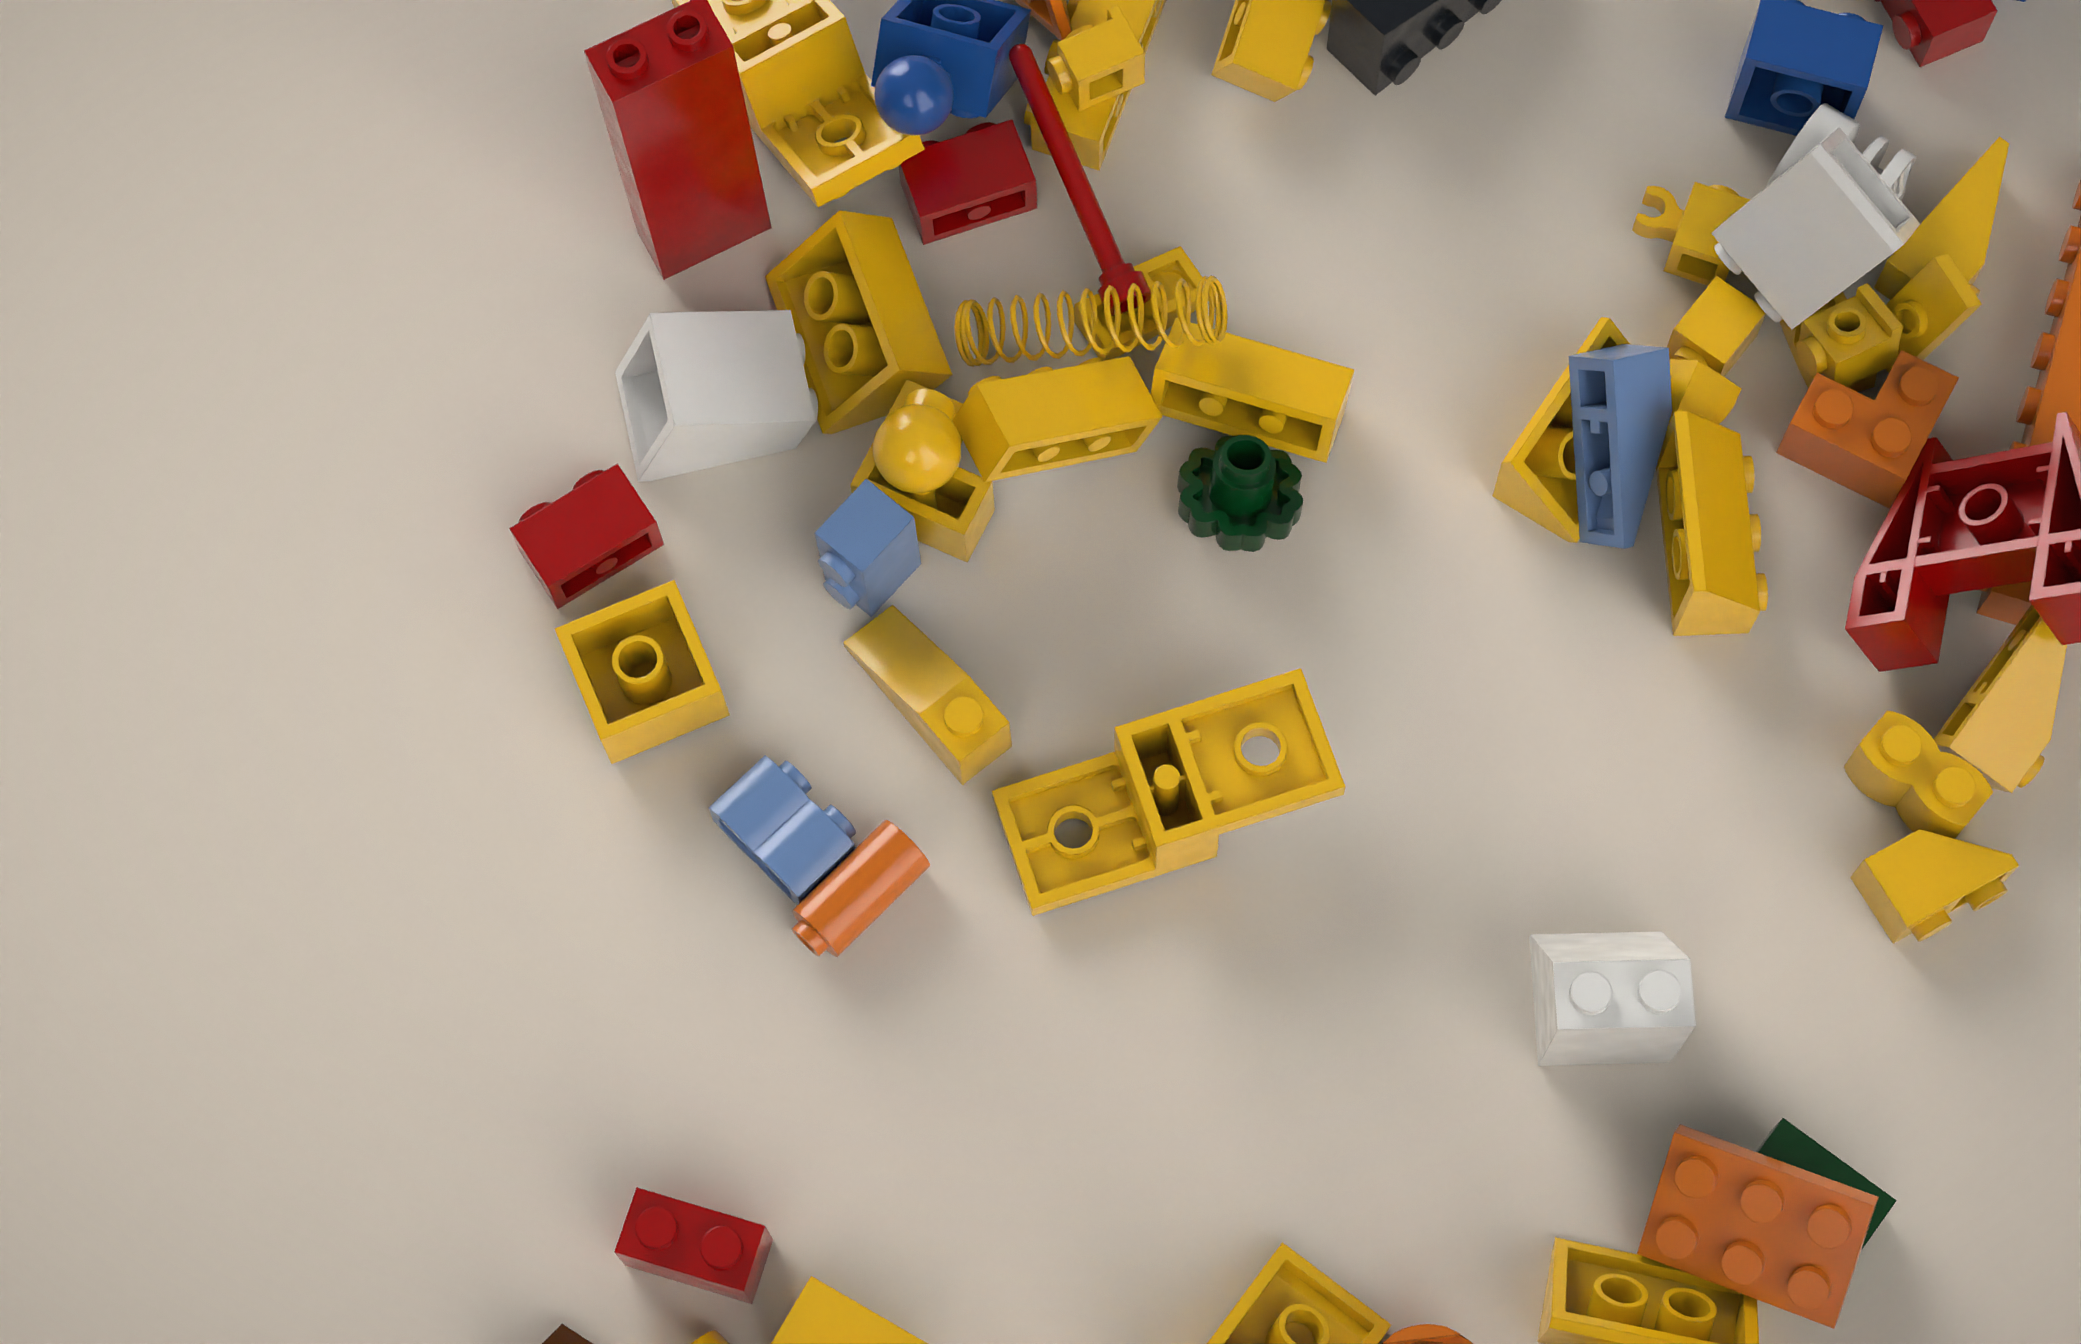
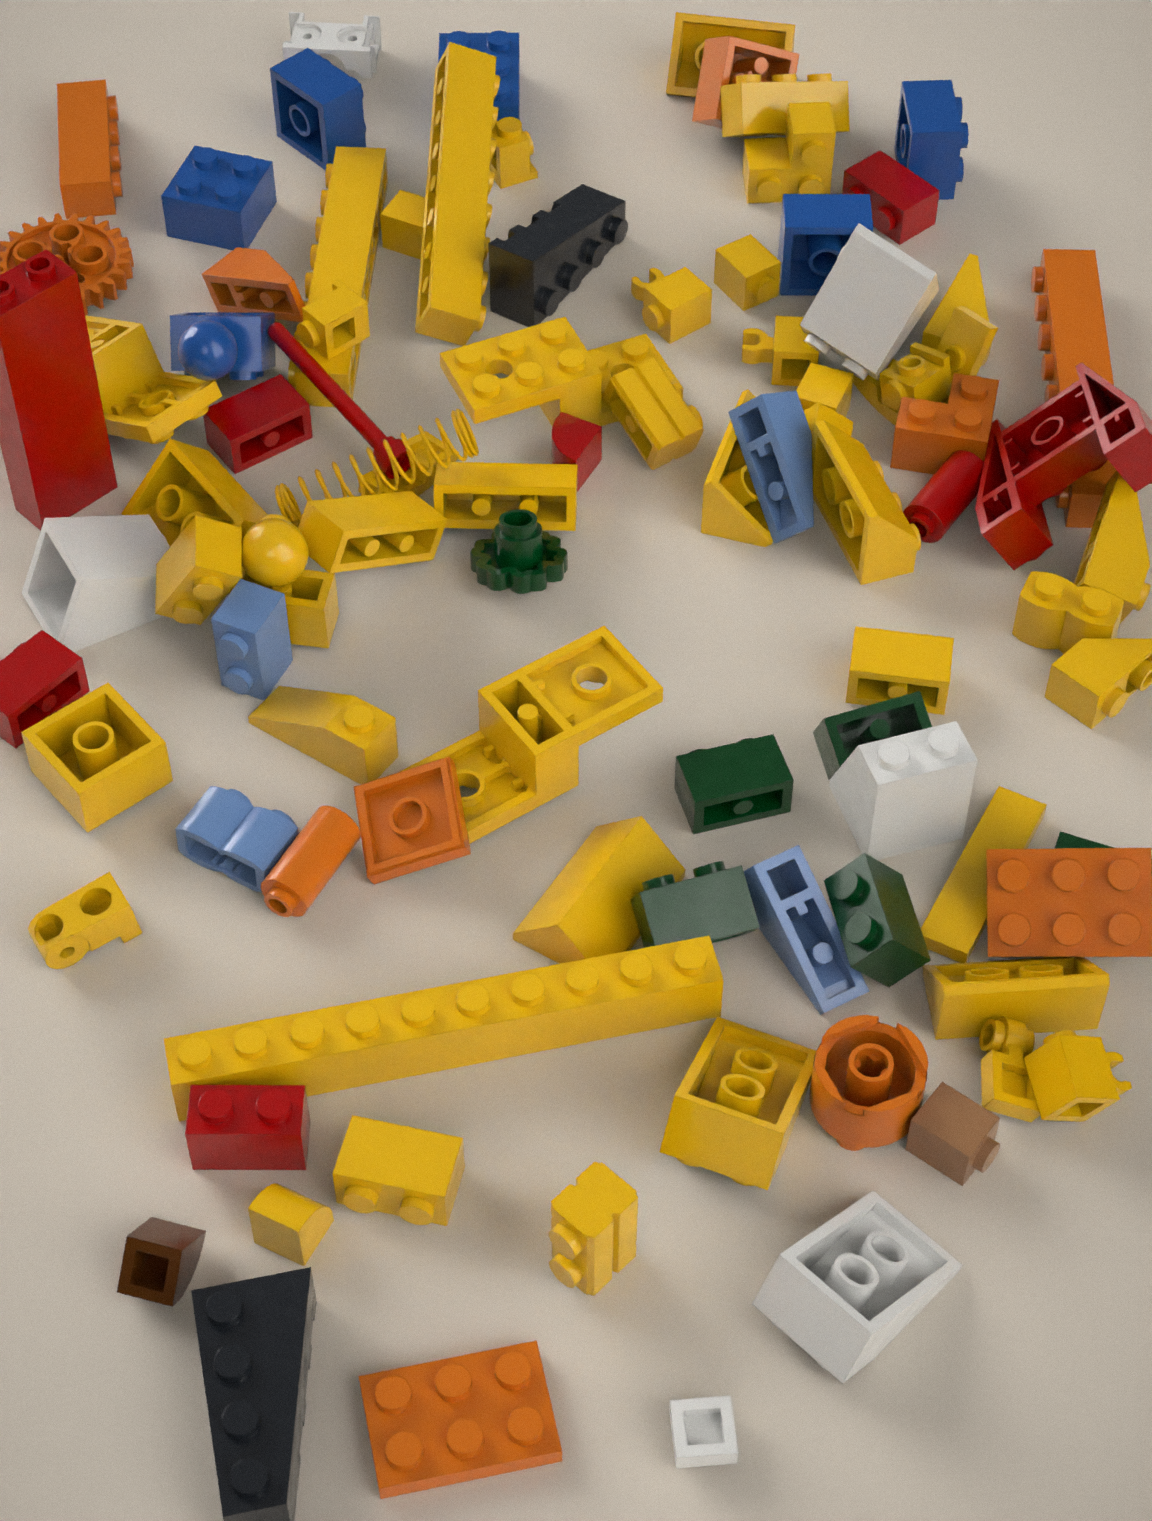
camera: 20 degrees left, 20 degrees down
(576, 903) = (83, 923): none -> yellow leg
(820, 445) = (198, 570): none -> yellow brick
(958, 1174) = (456, 1023): none -> yellow brick
(994, 866) = (411, 820): none -> orange tile
(1194, 1035) = (589, 902): none -> yellow slope
(1295, 1099) = (709, 904): none -> dark green brick
(1363, 329) = (576, 443): none -> red brick
(1377, 212) = (544, 368): none -> yellow bracket
(1404, 914) = (733, 783): none -> dark green brick
(1420, 1155) = (803, 929): none -> medium blue slope
(1483, 303) = (654, 412): none -> yellow brick
(1512, 1176) = (876, 920): none -> dark green piece
(1568, 110) = (673, 303): none -> yellow brick
(1600, 902) = (842, 733): none -> dark green brick
(1672, 798) = (897, 664): none -> yellow brick
(1687, 81) = (747, 272): none -> yellow brick
(1698, 1097) = (962, 904): none -> yellow tile
(1825, 536) = (945, 495): none -> red brick

